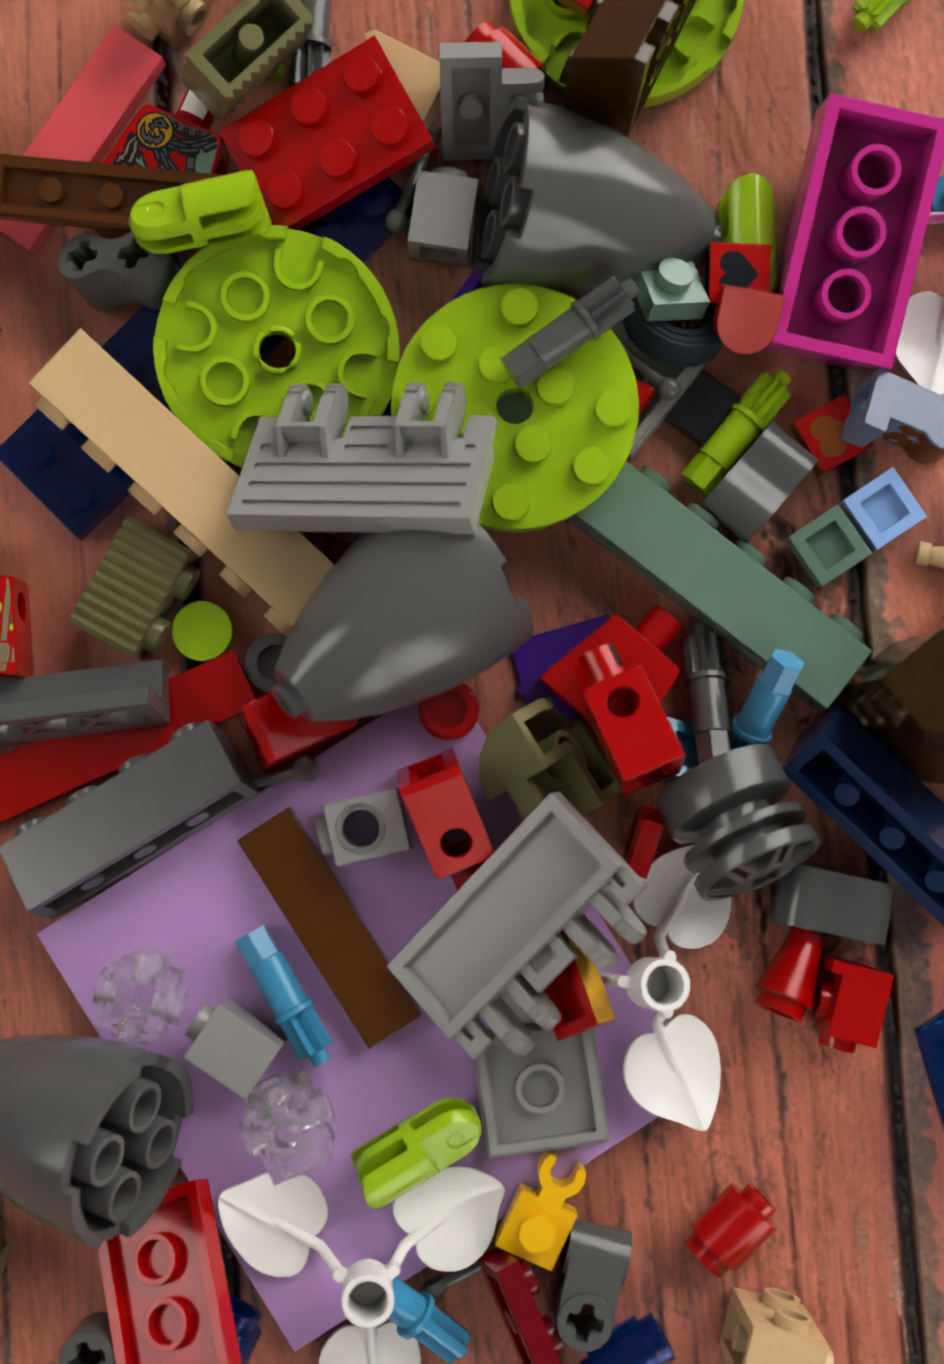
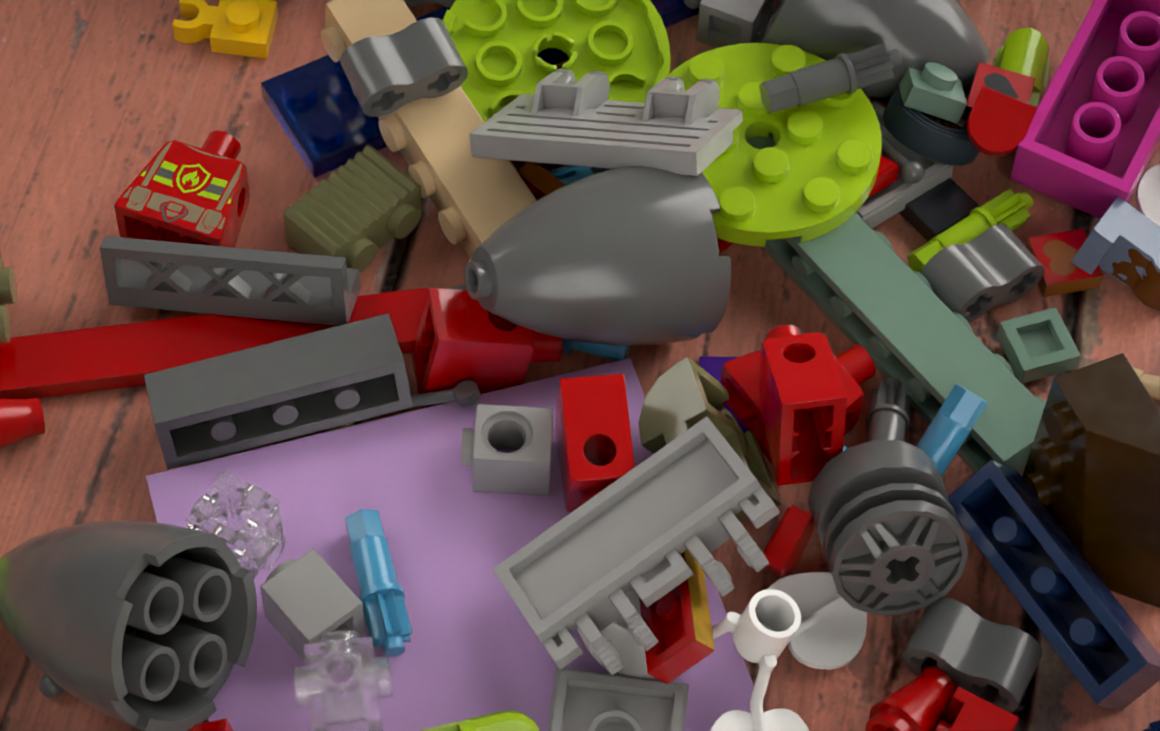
camera: 15 degrees right, 30 degrees down
(134, 447) = (403, 67): none -> dark grey axle
(203, 631) = (403, 267): lime tile -> none
(329, 927) = (444, 539): reddish brown tile -> none
(450, 713) = (637, 371): red tile -> none
(882, 509) = (1101, 327): light blue plate -> none

